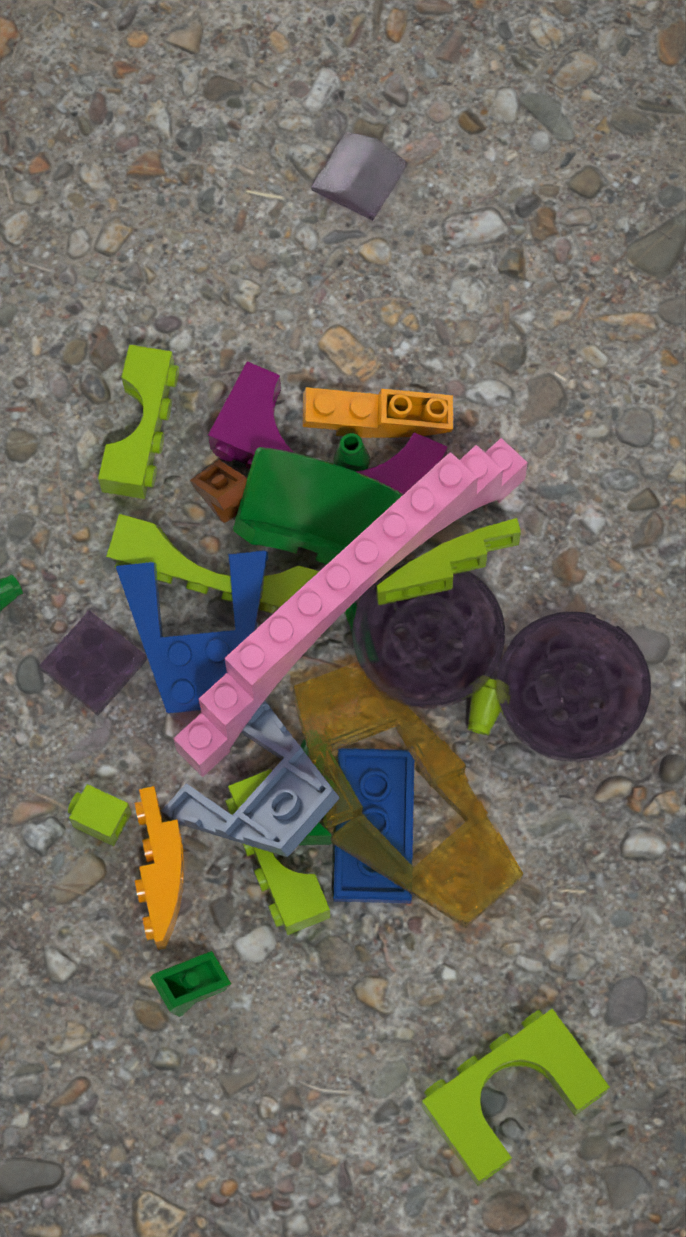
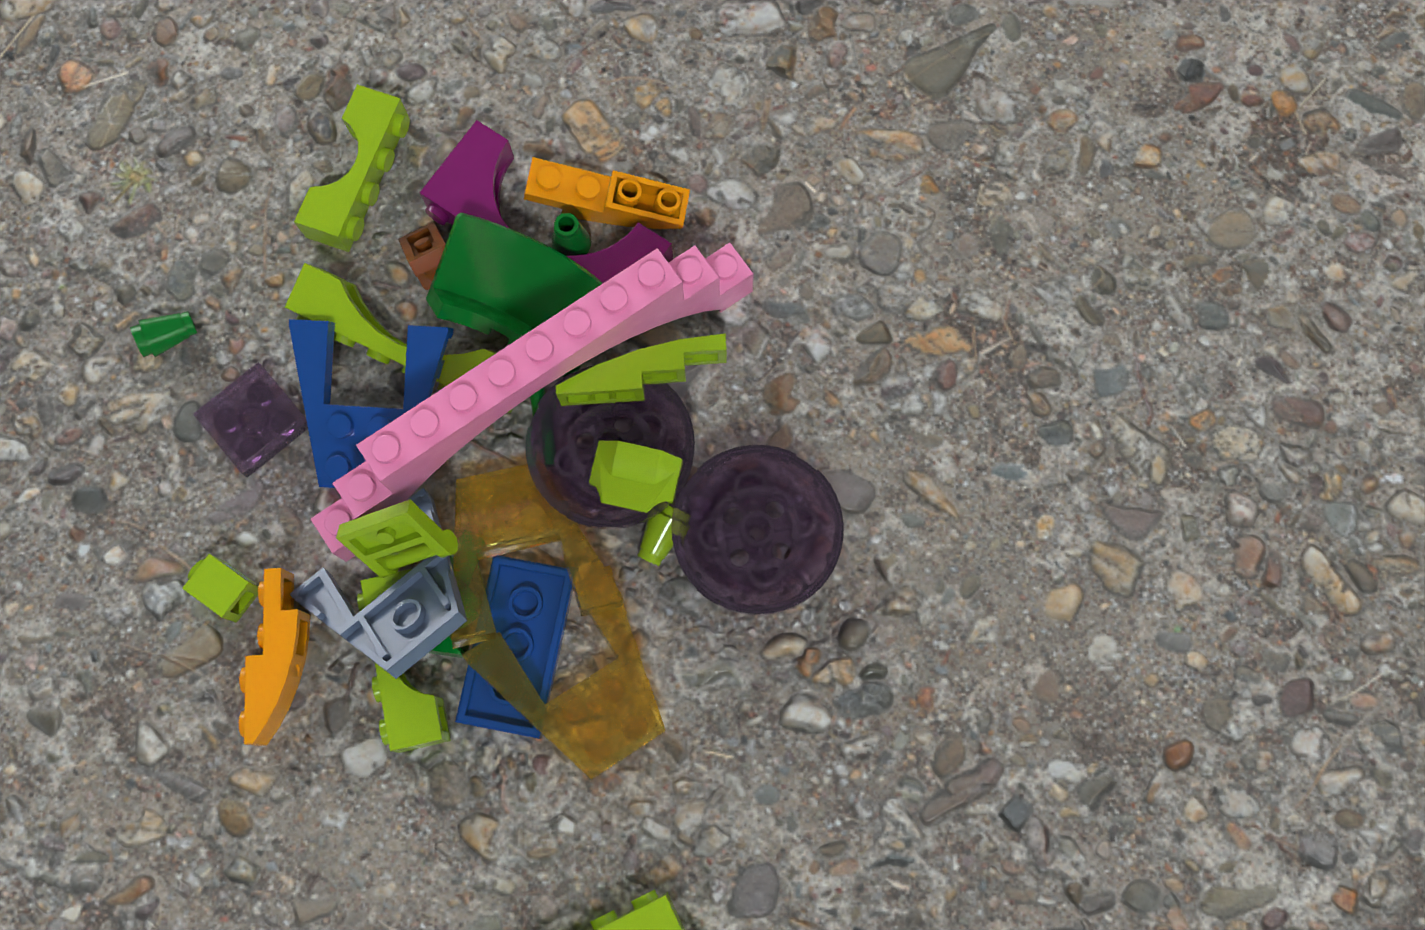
camera: 10 degrees right, 5 degrees up
(190, 982) = (274, 795): green slope -> none
(262, 738) = (396, 538): none -> lime plate
(457, 653) = (634, 475): none -> lime slope

